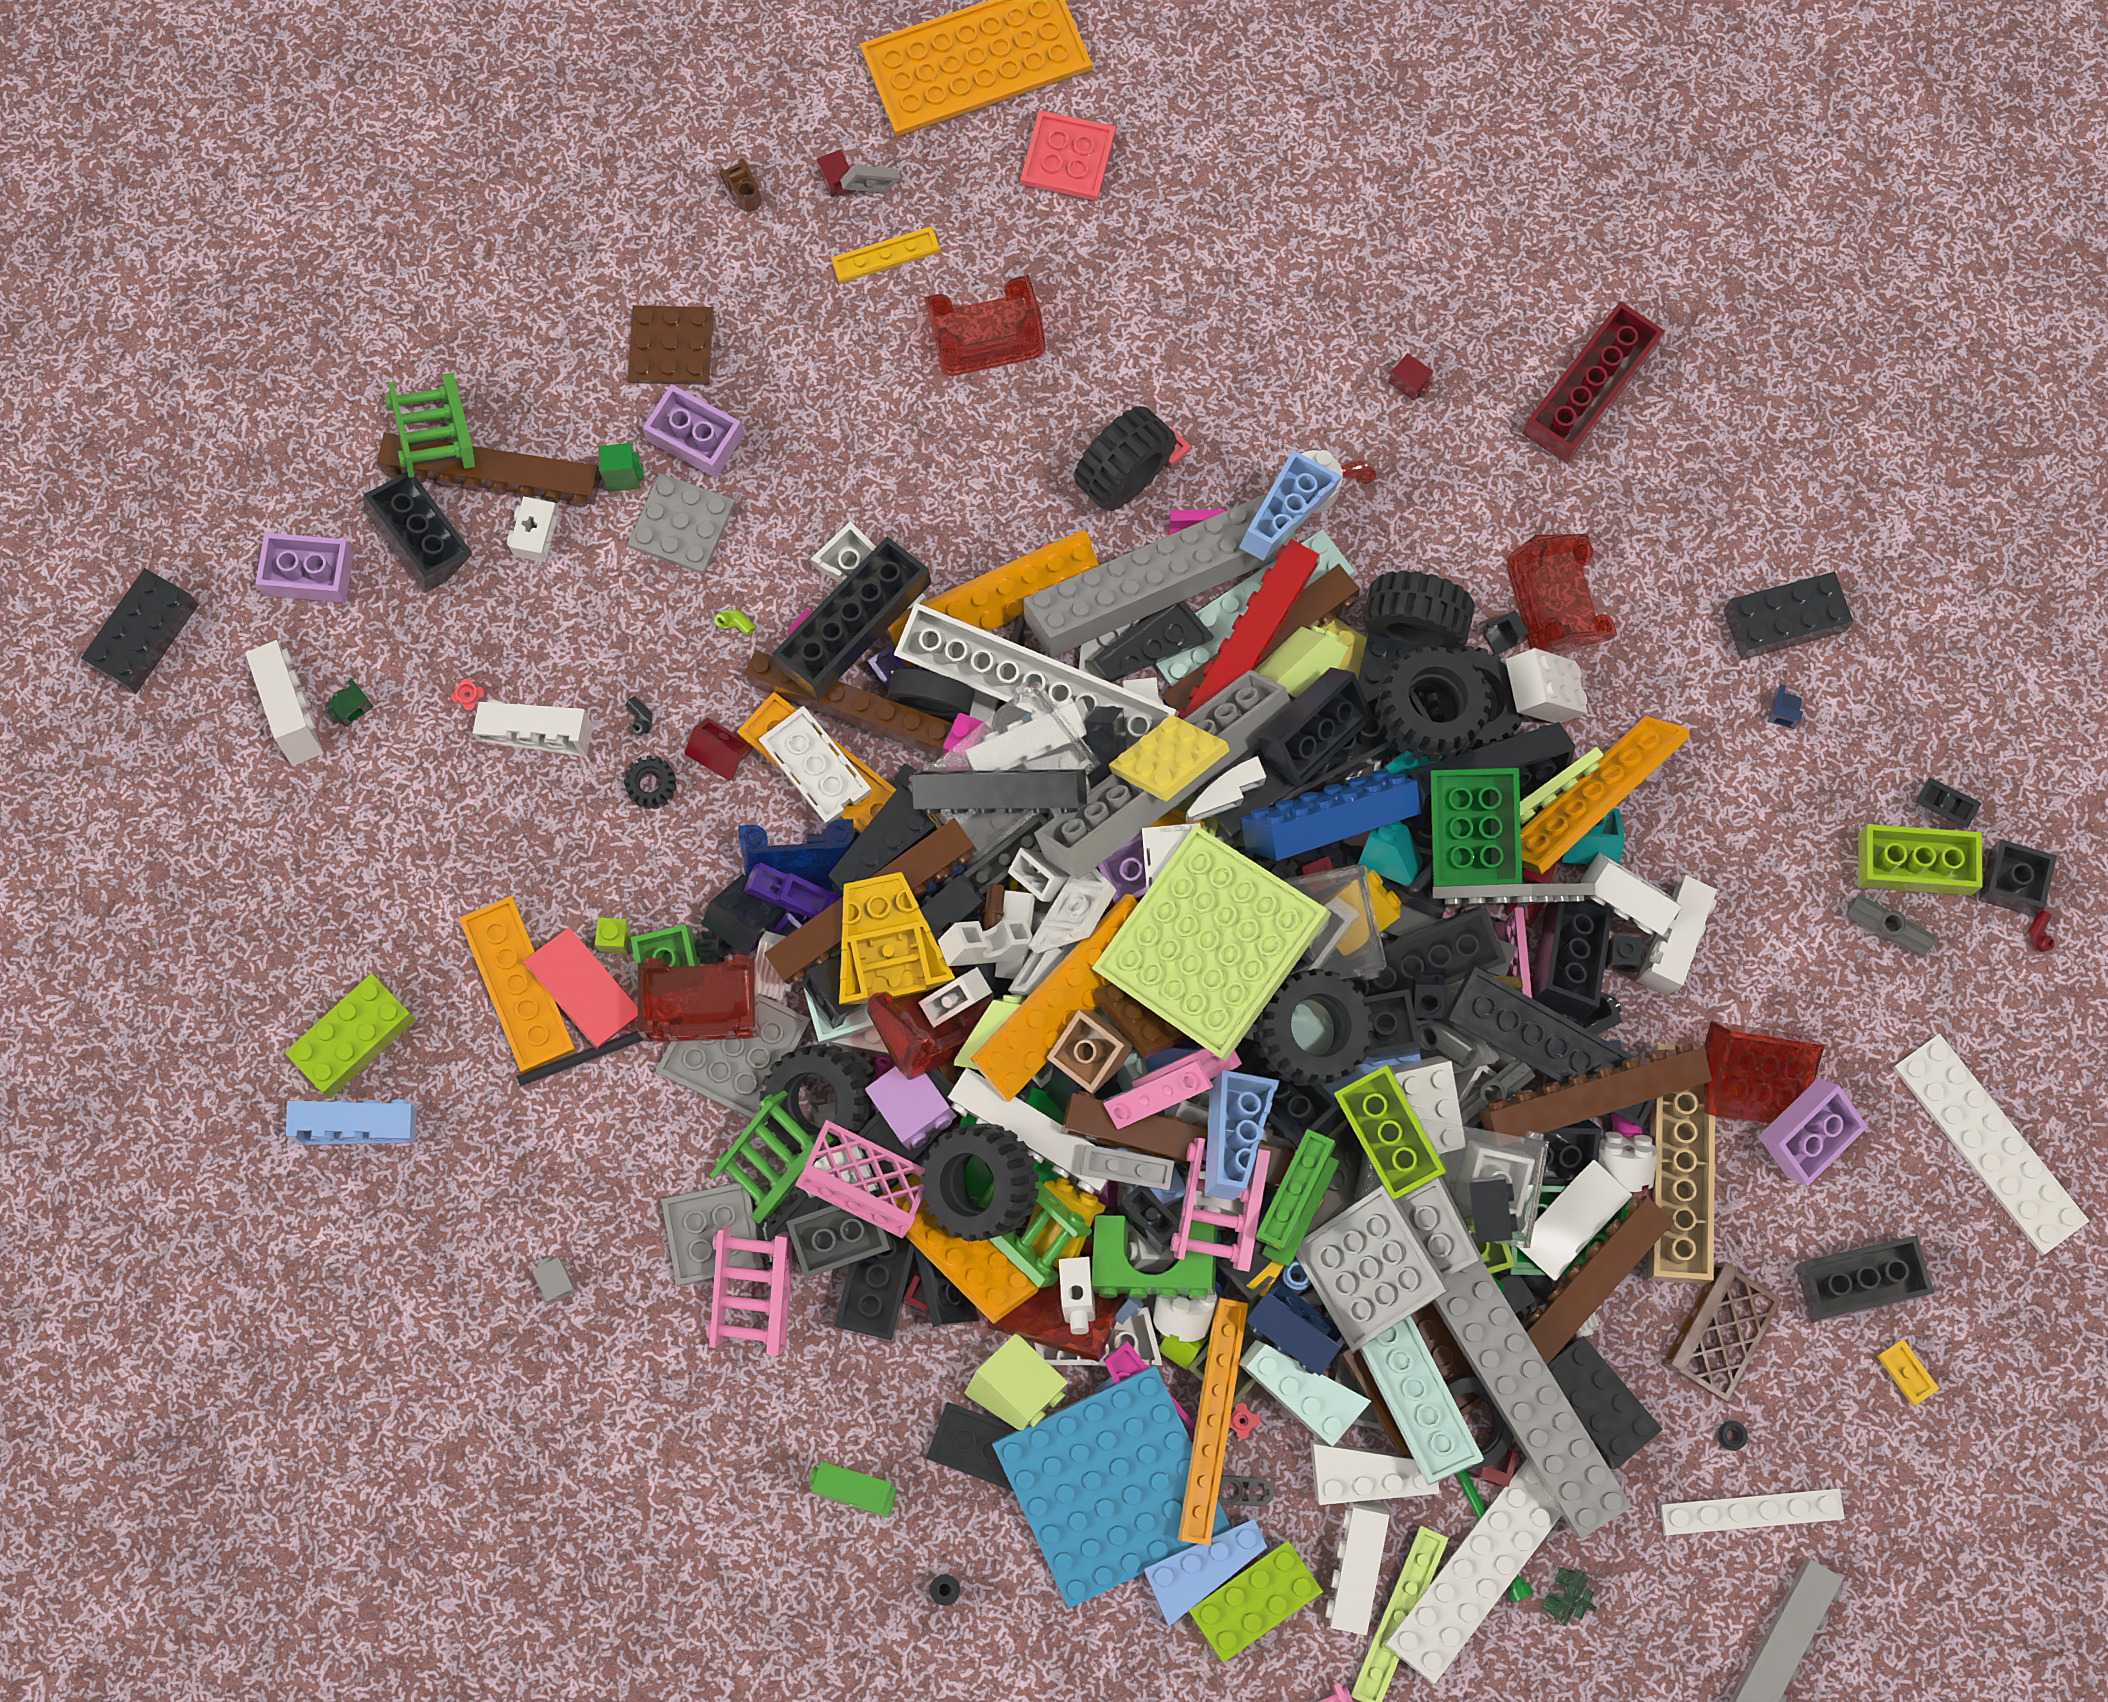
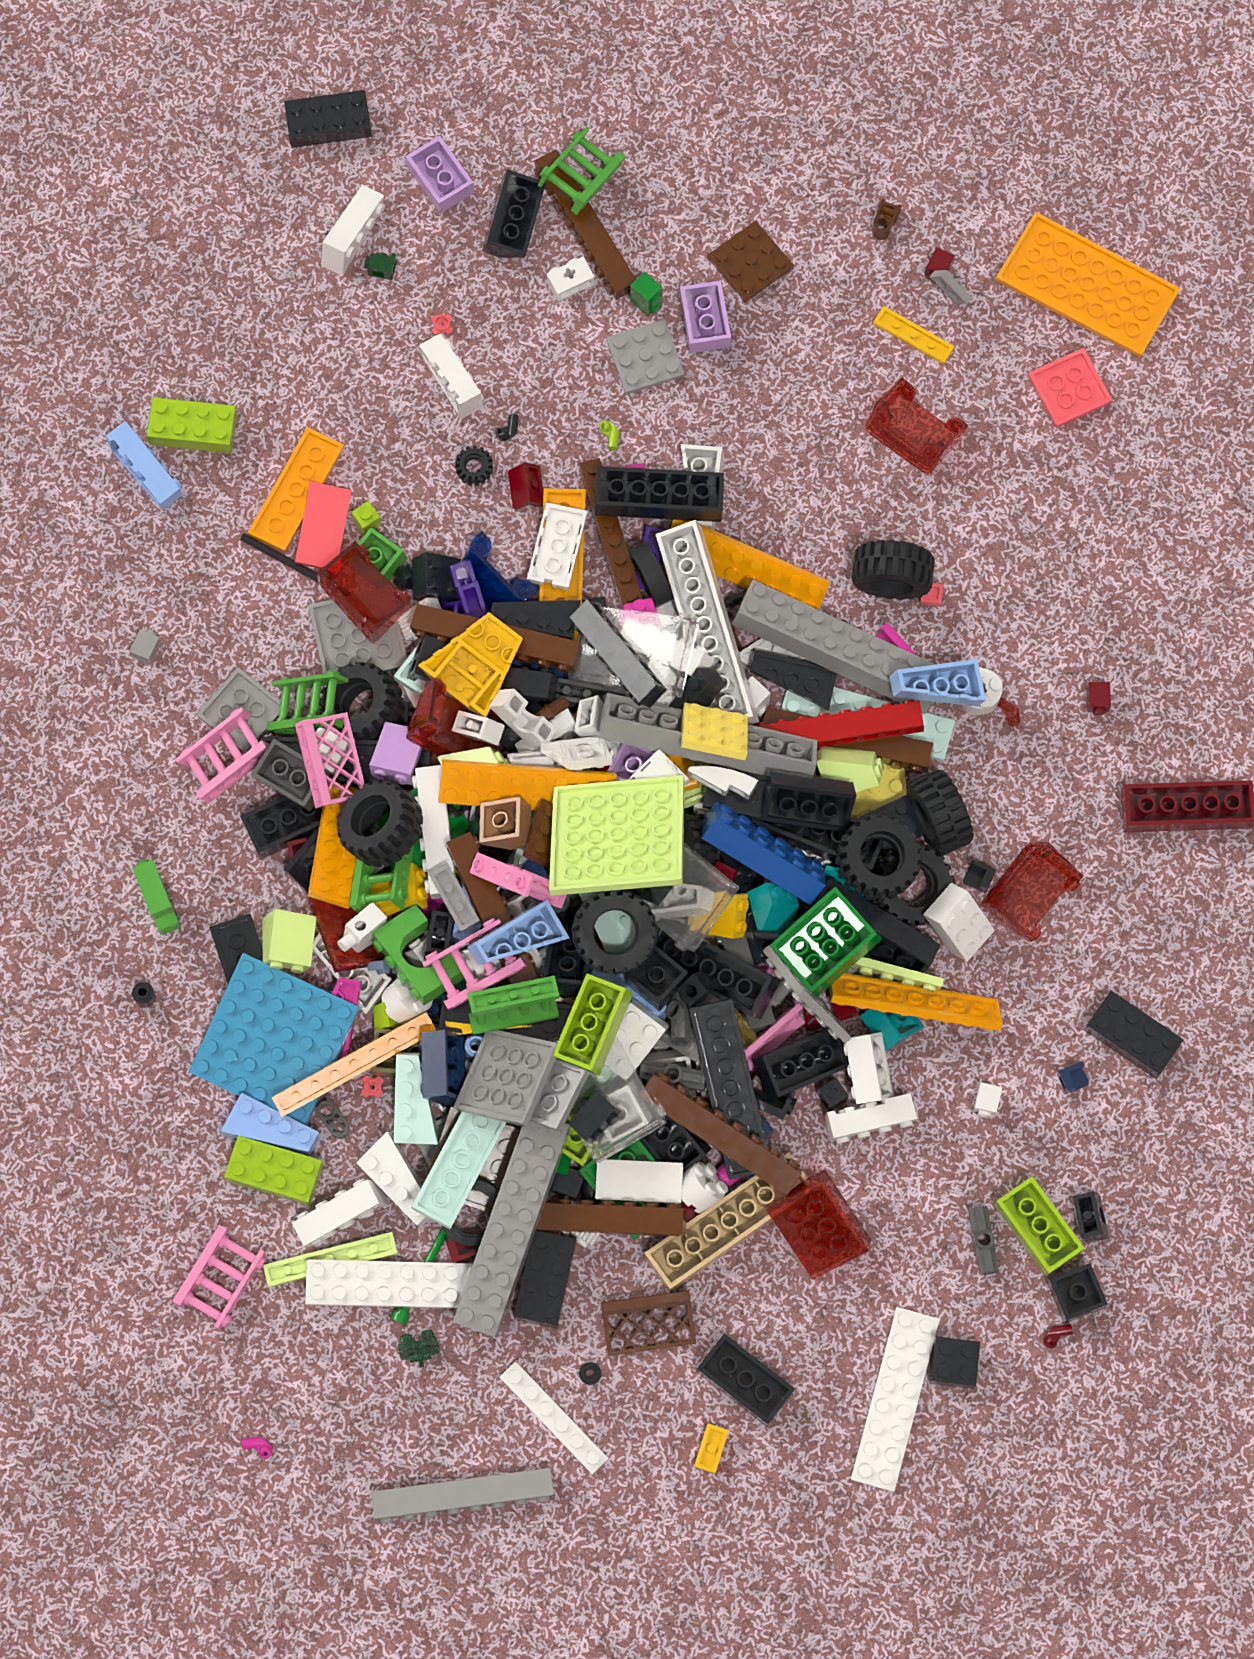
camera: 50 degrees right, 0 degrees up
(1746, 807) = (987, 1100): none -> white brick
(1813, 1131) = (811, 1283): lavender brick -> none
(2000, 1054) = (955, 1362): none -> black brick

